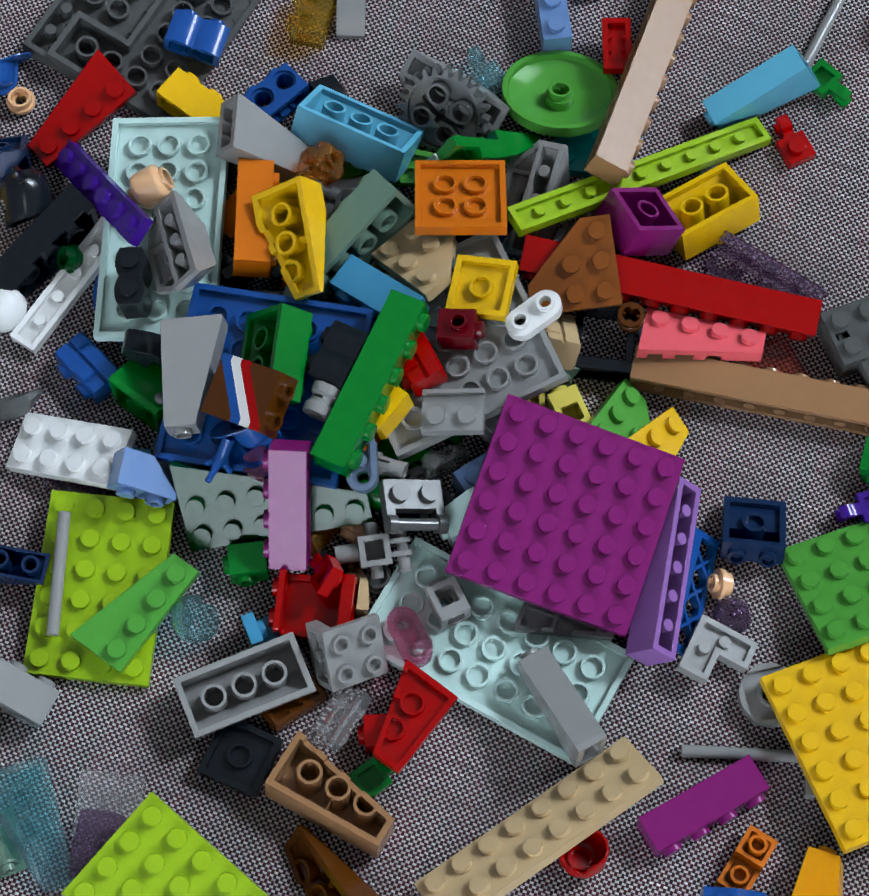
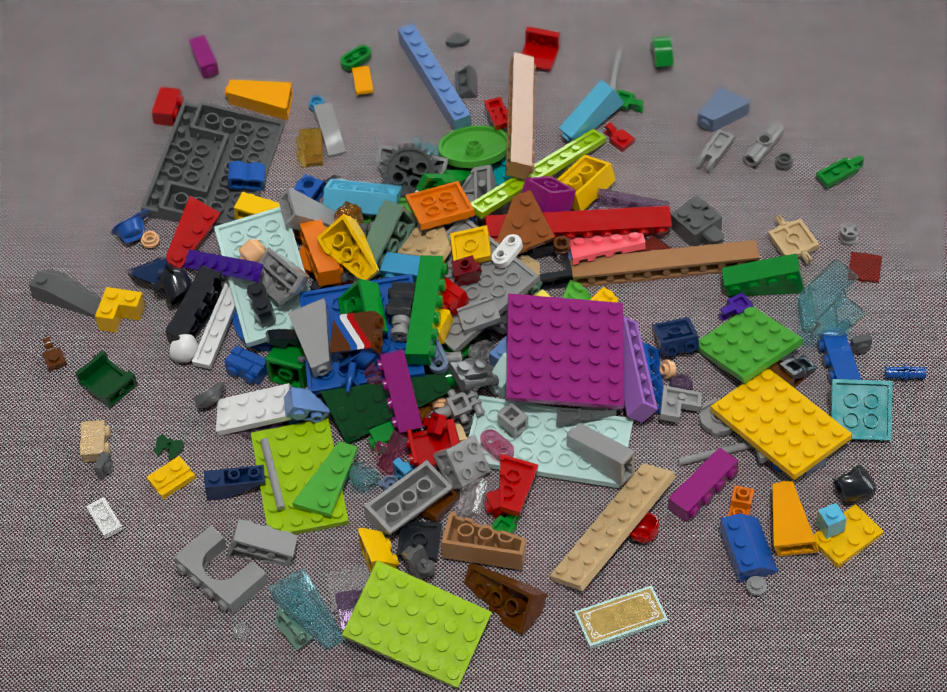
camera: 15 degrees left, 15 degrees down
(69, 258) = (215, 307): dark green plate -> none
(168, 761) = (376, 547): none -> yellow slope
(222, 801) = (418, 562): none -> flat silver hips
(223, 638) = (388, 480): none -> sand blue plate
(247, 594) = (390, 451): none -> clear pink tile

